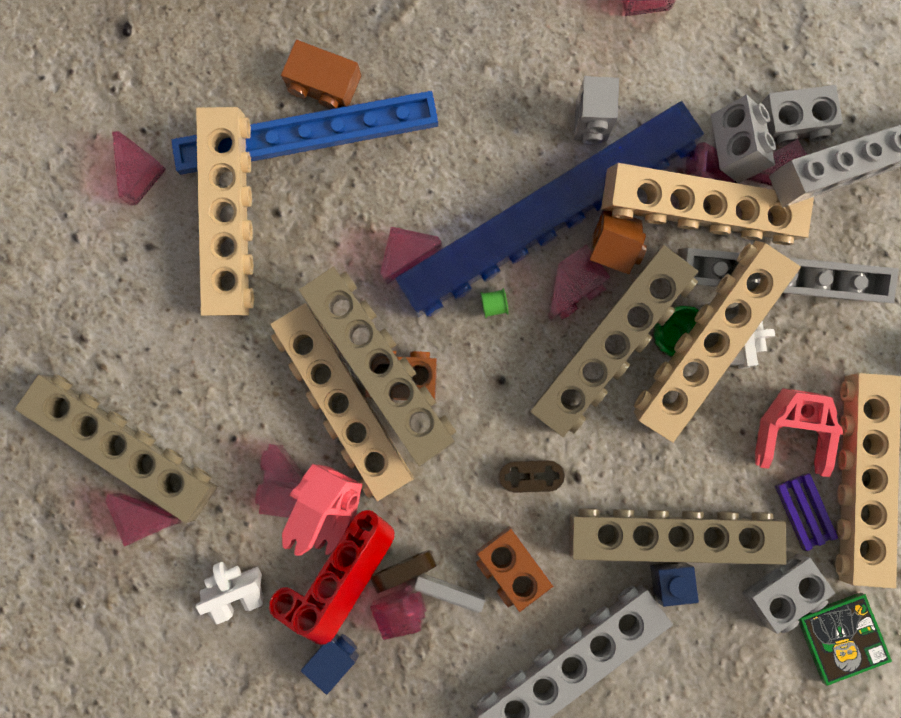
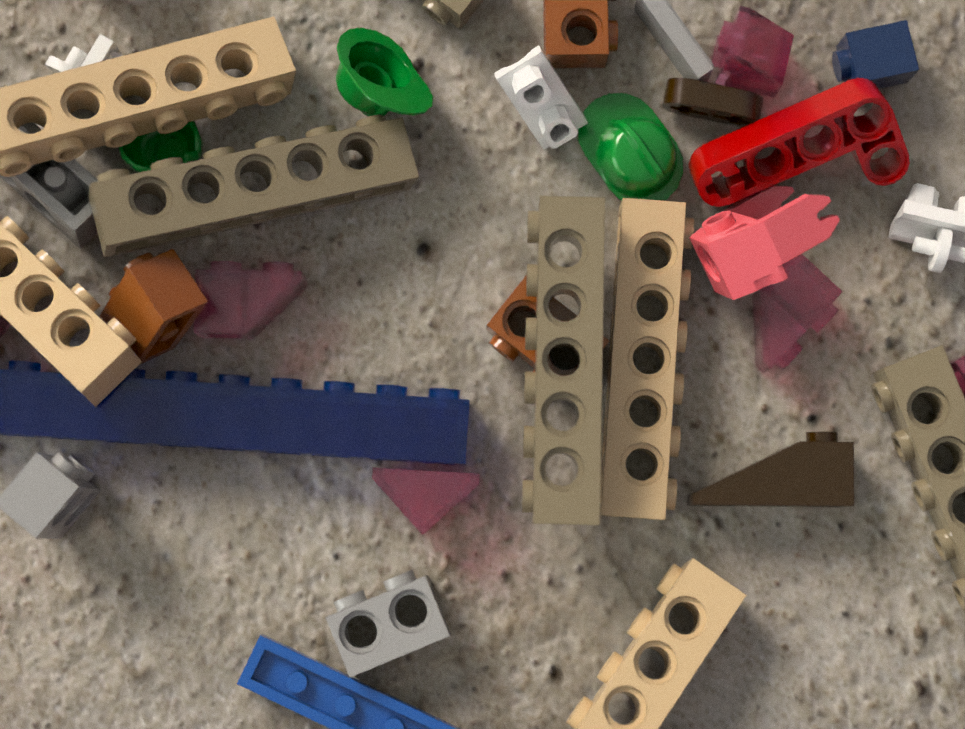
camera: 150 degrees left, 0 degrees up
(222, 395) = (799, 475): none -> dark brown slope
(368, 170) = (393, 636): none -> light grey brick
(430, 514) = (630, 148): none -> green piece
(494, 303) = (361, 348): bright green axle -> none
(495, 503) = (542, 99): none -> white hips
(532, 484) = (480, 95): dark brown beam -> none
(591, 452) = (379, 75): none -> green piece

